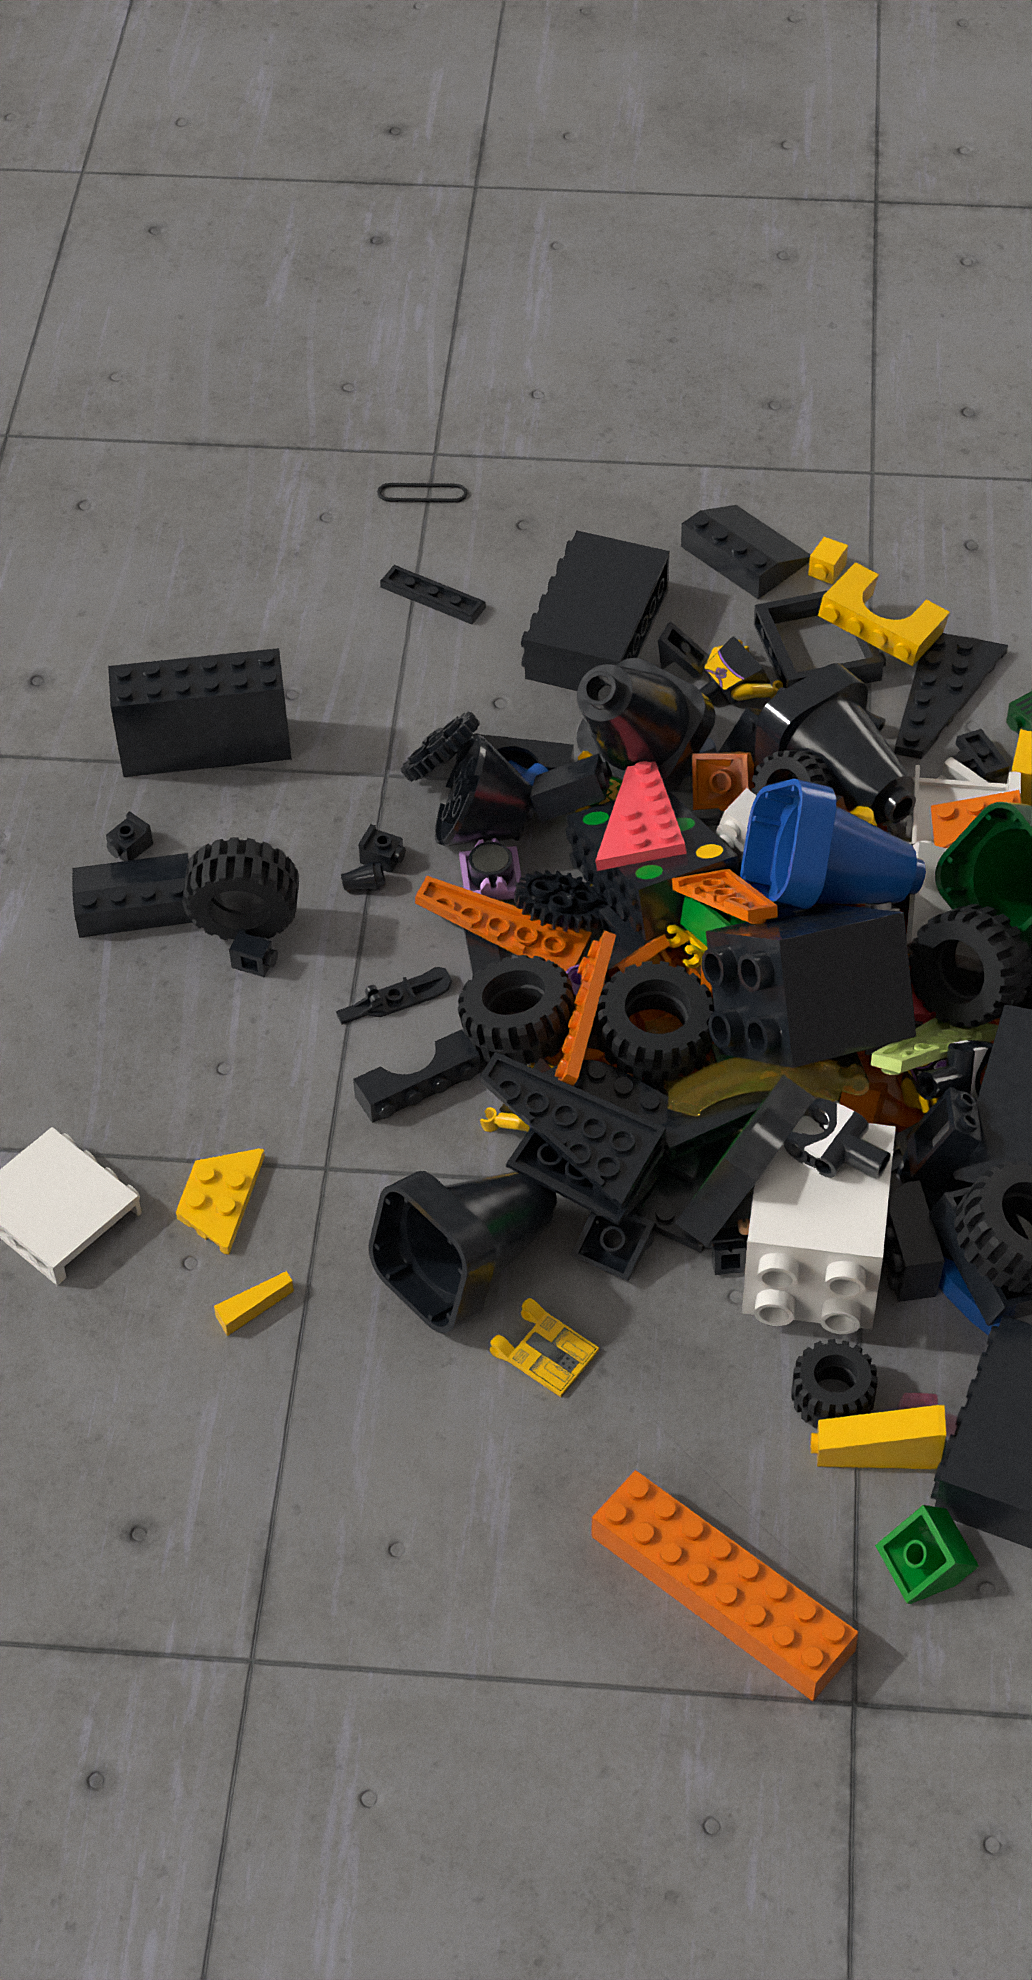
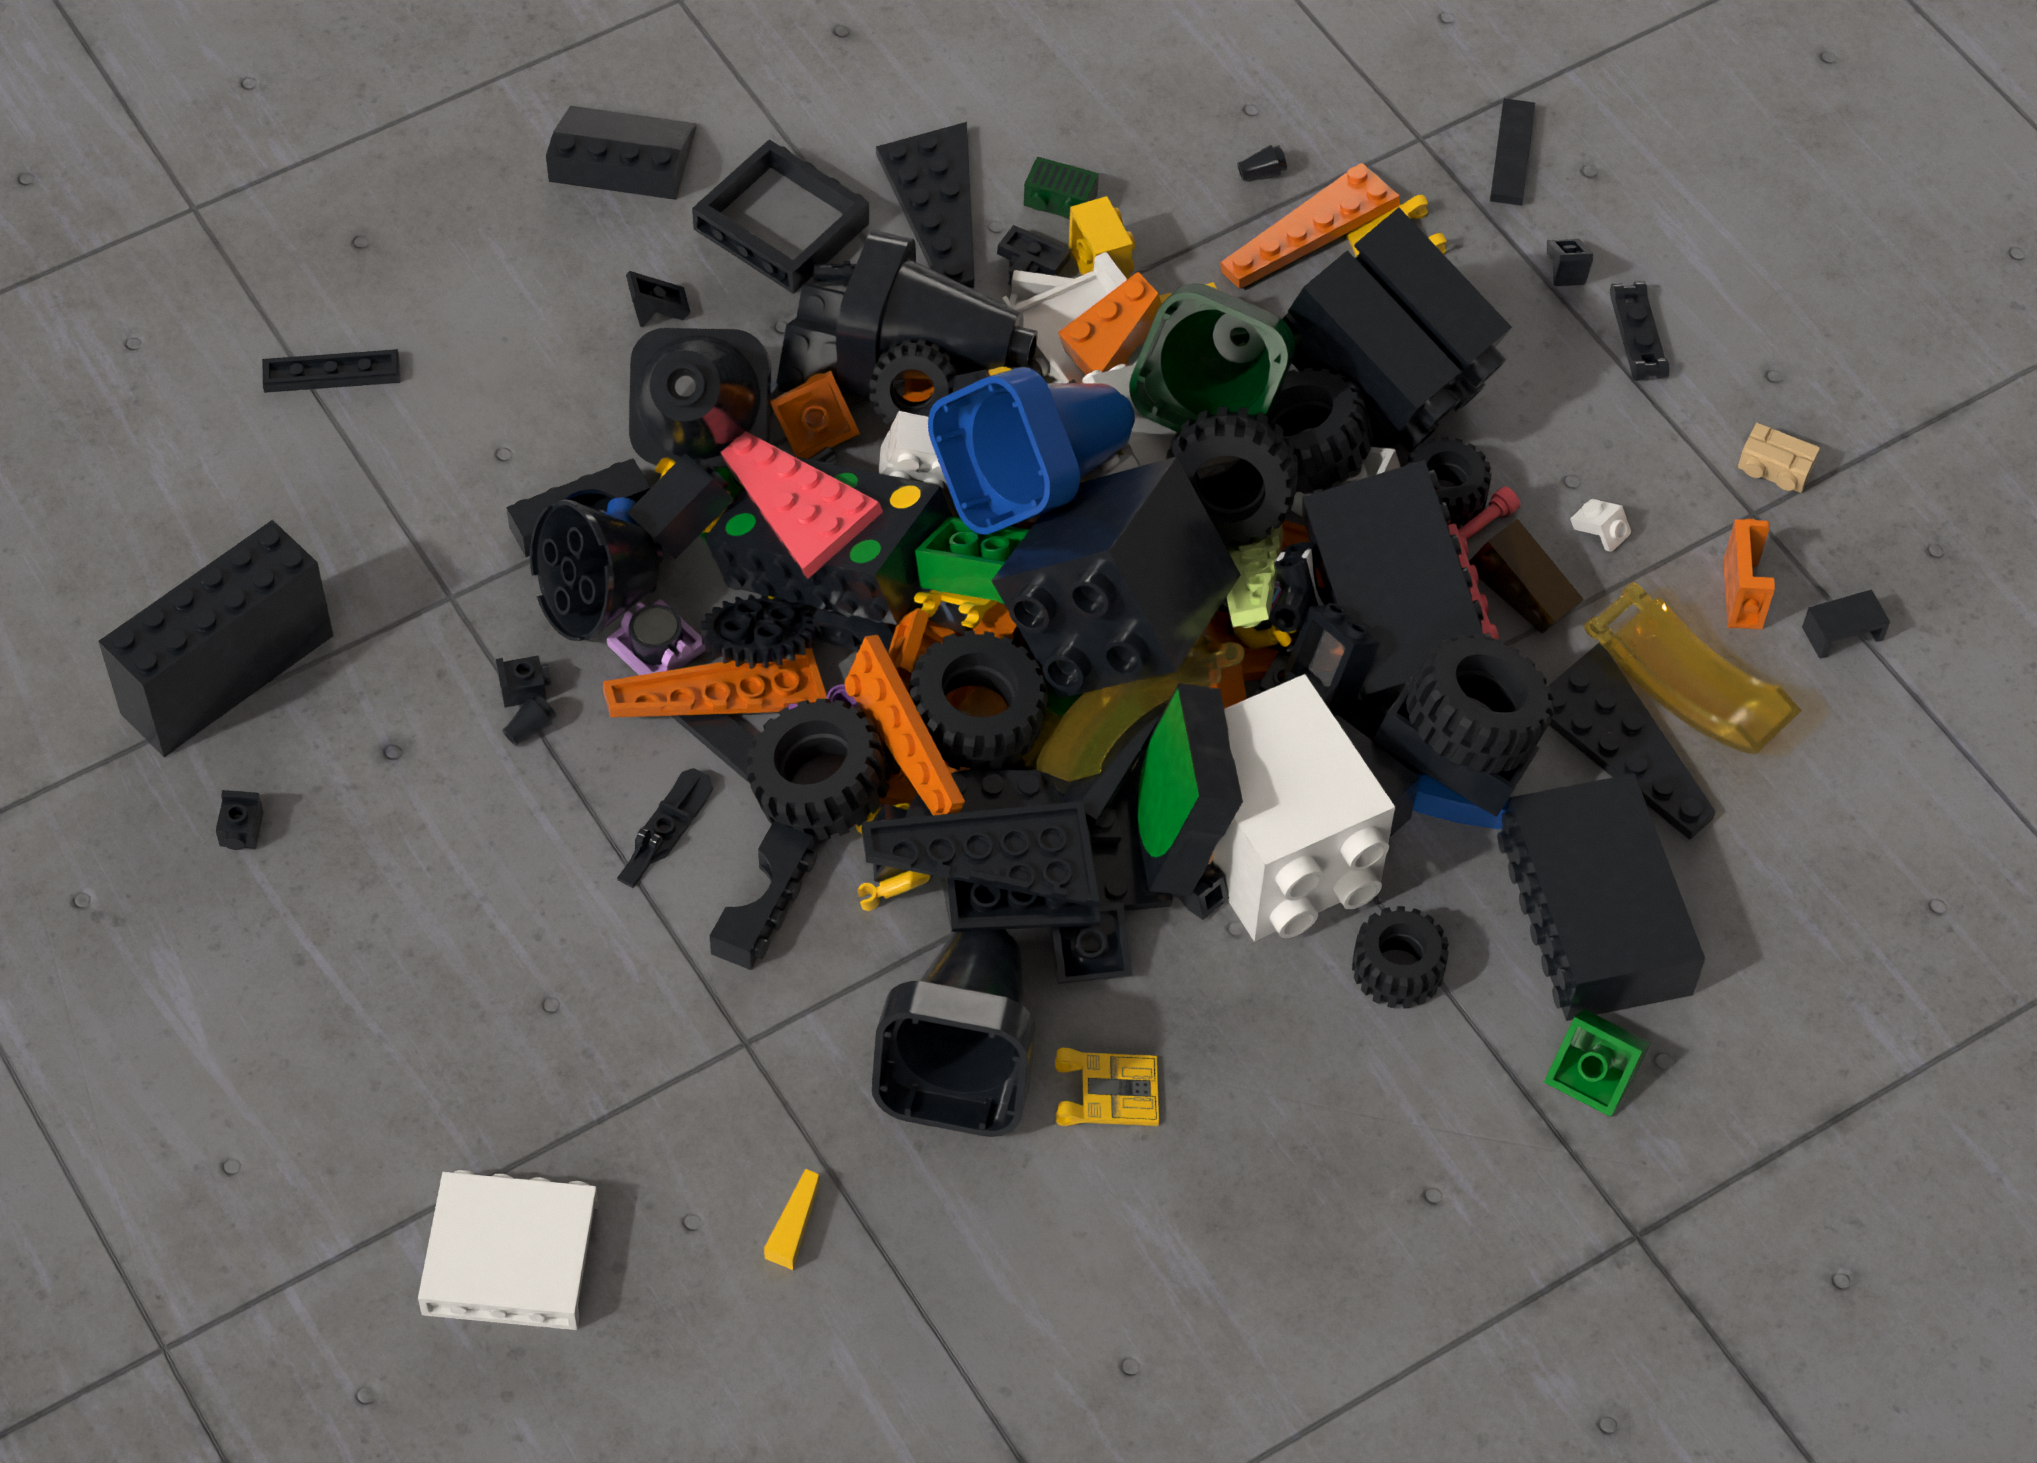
camera: 40 degrees left, 5 degrees up
(129, 895) = (296, 876): black slope -> none
(219, 1195) = (665, 1136): yellow wing -> none
(241, 887) = (435, 805): black tyre -> none
(252, 954) = (484, 867): black brick -> none
(422, 499) = (222, 270): black piece -> none
(440, 746) = (502, 535): black gear -> none
(594, 609) = (537, 304): black brick -> none
(724, 1585) = (1451, 1202): orange brick -> none
(727, 893) = (972, 531): orange wing -> none
(736, 674) = (732, 292): torso -> none
(828, 560) = (719, 120): yellow brick -> none
(838, 1143) = (1275, 718): black connector -> none
(882, 1439) = (1483, 979): yellow slope -> none
(901, 638) = (798, 166): yellow arch -> none
(916, 1400) = (1489, 929): clear pink tile -> none

